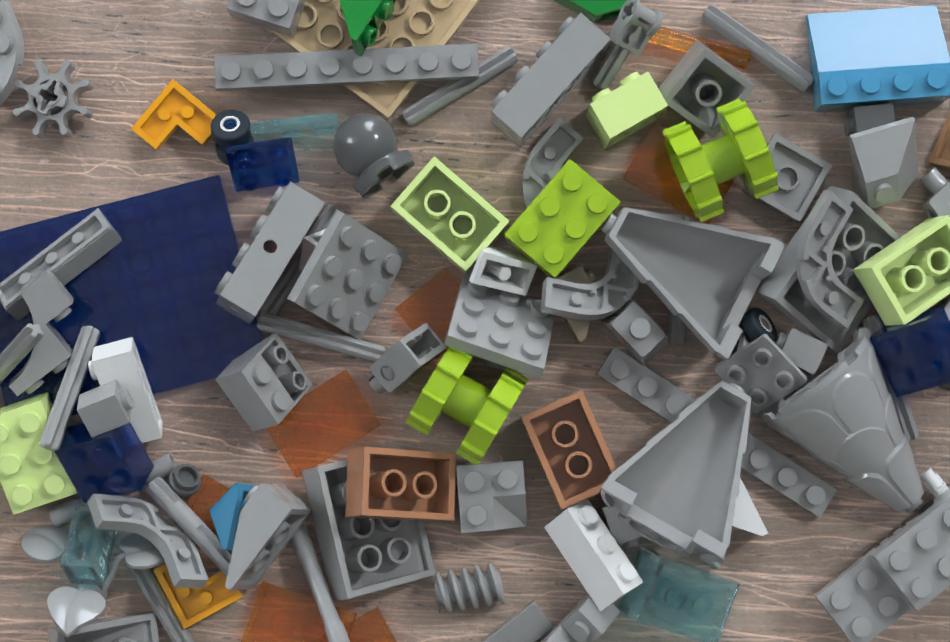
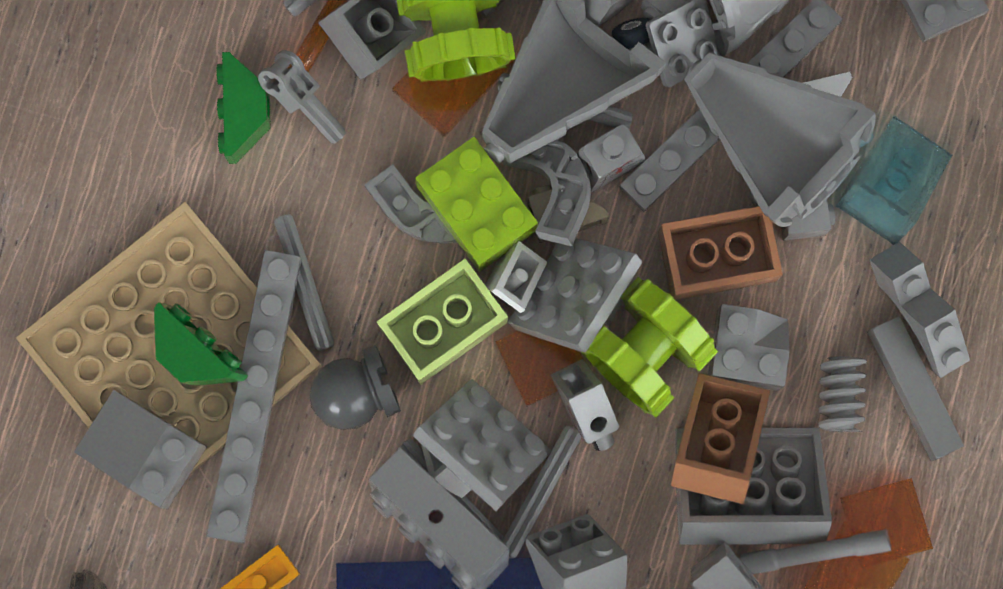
camera: 80 degrees left, 5 degrees down
(250, 162) = (335, 520): clear blue plate -> none
(293, 126) = (305, 470): clear light blue hinge -> none
(323, 423) = (633, 509): clear orange tile -> none
(549, 80) = (319, 176): light grey brick -> none
(593, 554) = (836, 253): white brick -> none
(625, 109) = (377, 116): yellowish green brick -> none

